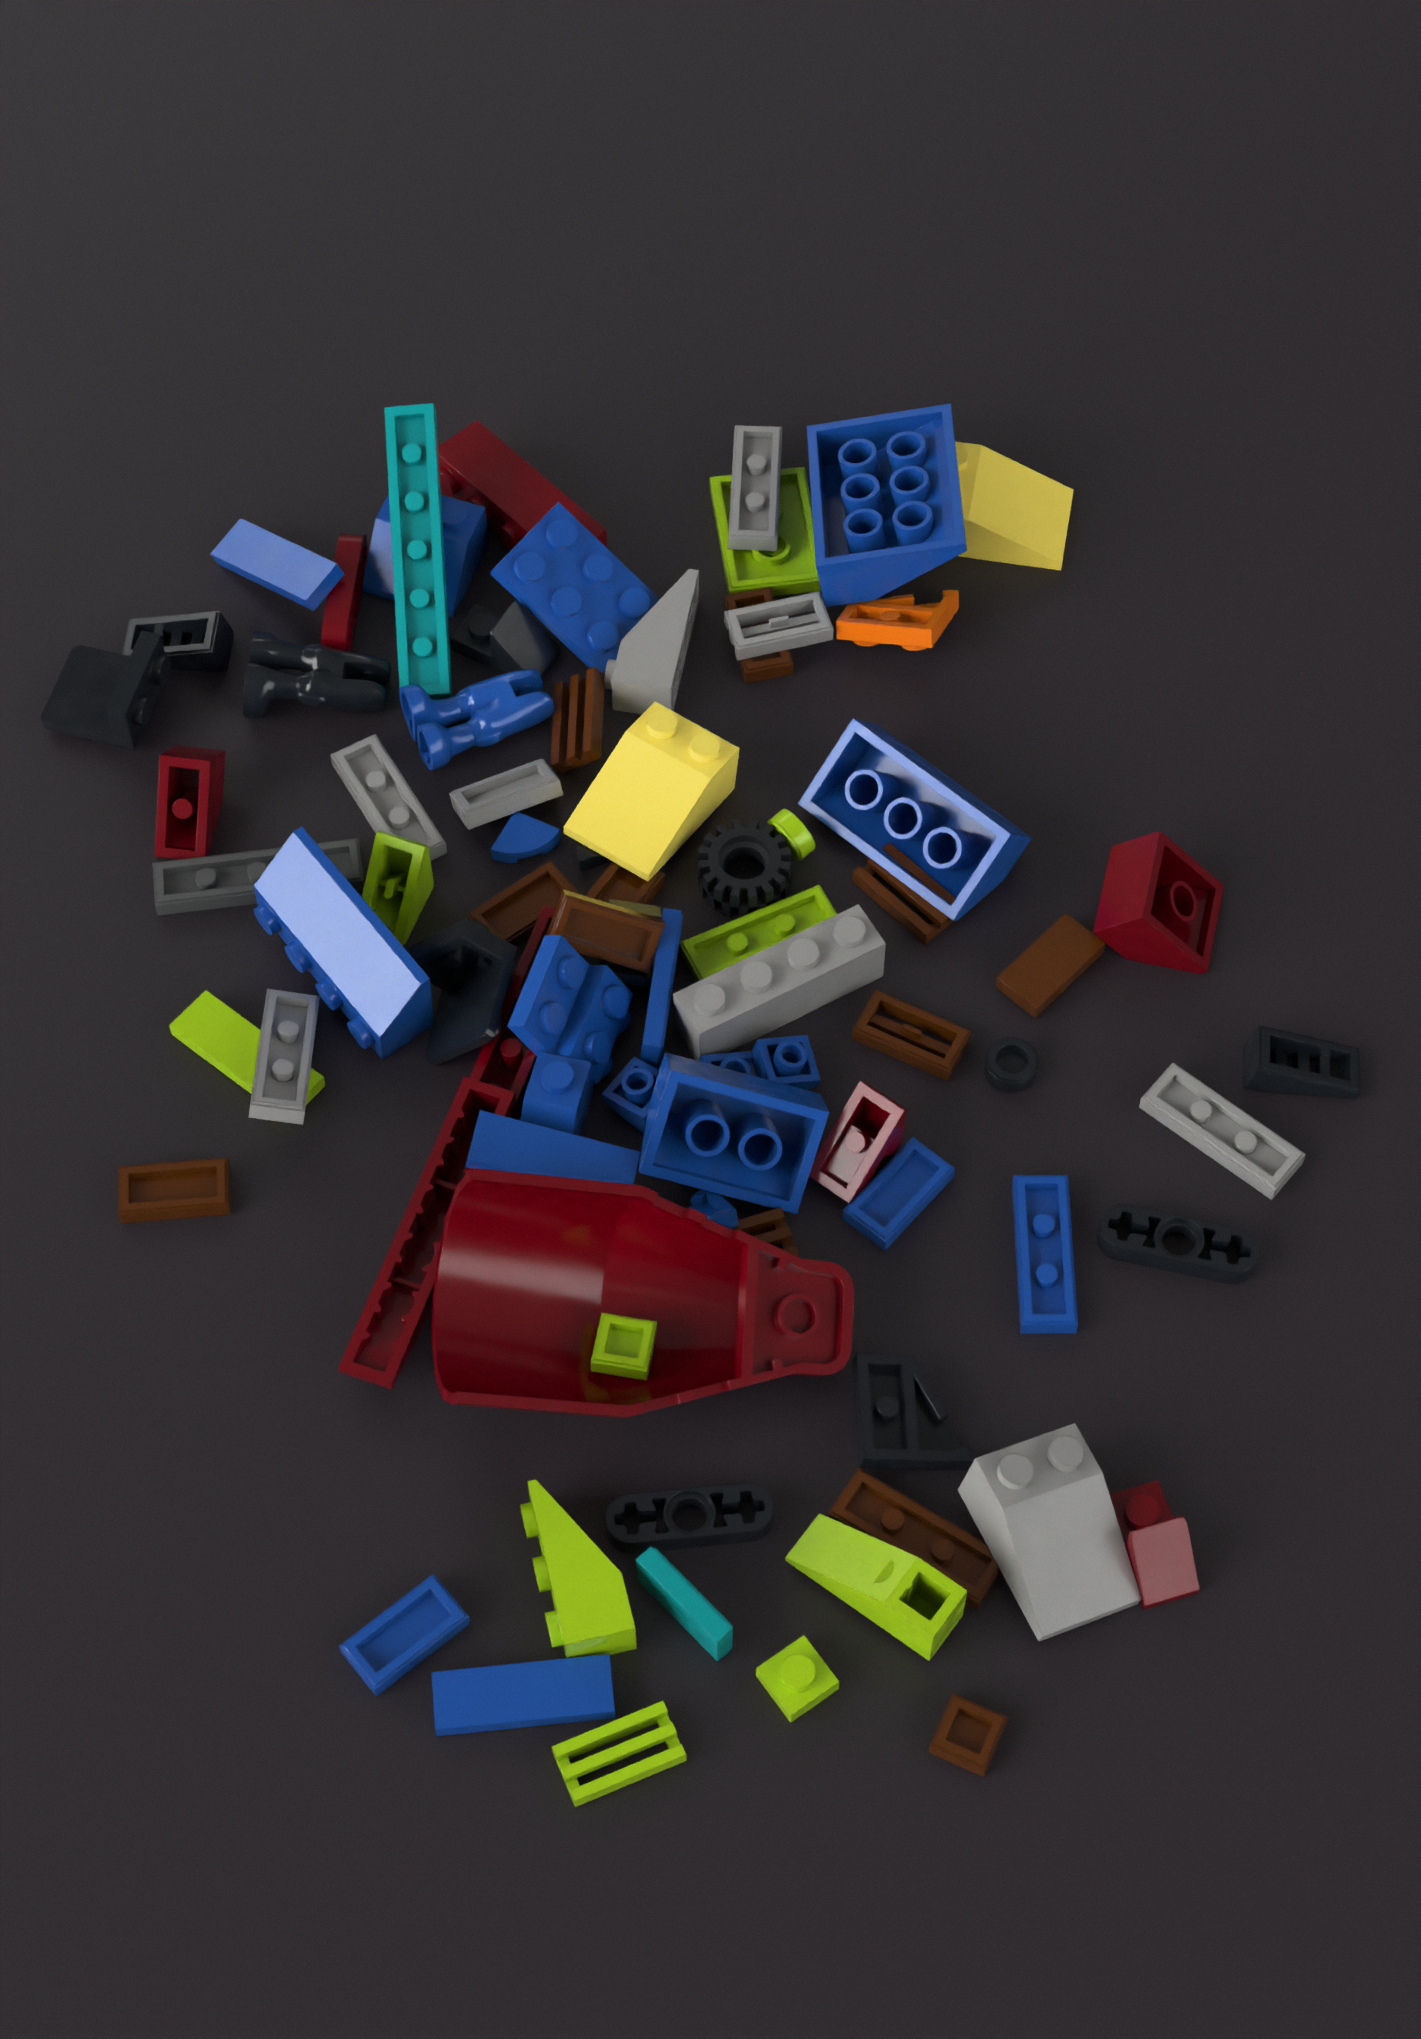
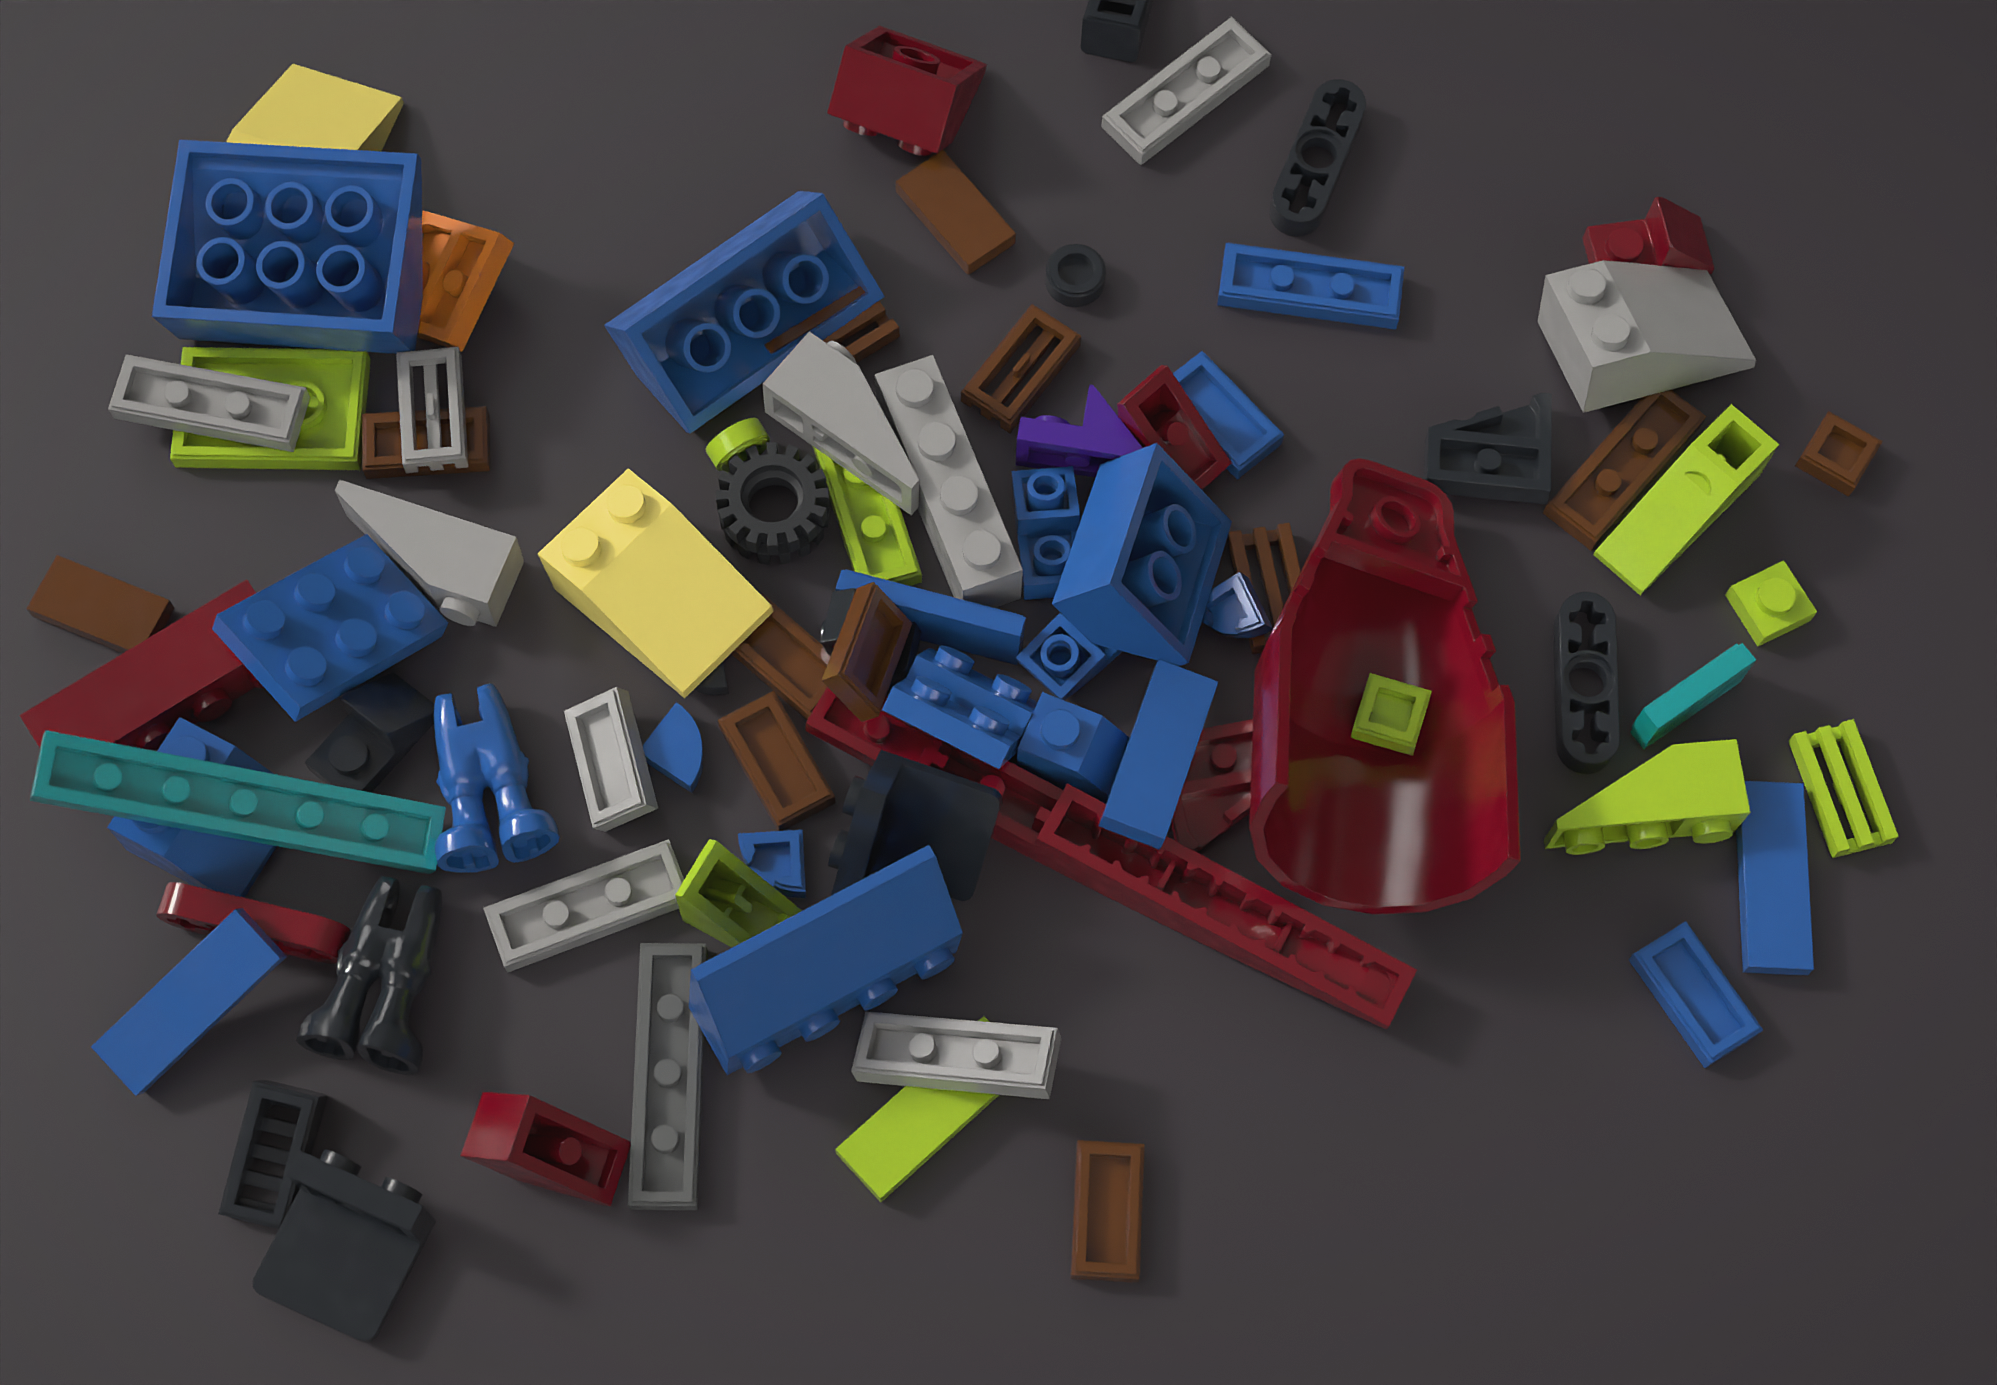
camera: 85 degrees left, 10 degrees up
(439, 915) = (777, 859): none -> blue tile
(571, 723) = (515, 684): reddish brown tile -> none
(584, 460) = (98, 606): none -> reddish brown tile
(833, 878) = (832, 407): none -> light grey slope
(841, 1073) = (1056, 443): none -> dark purple slope

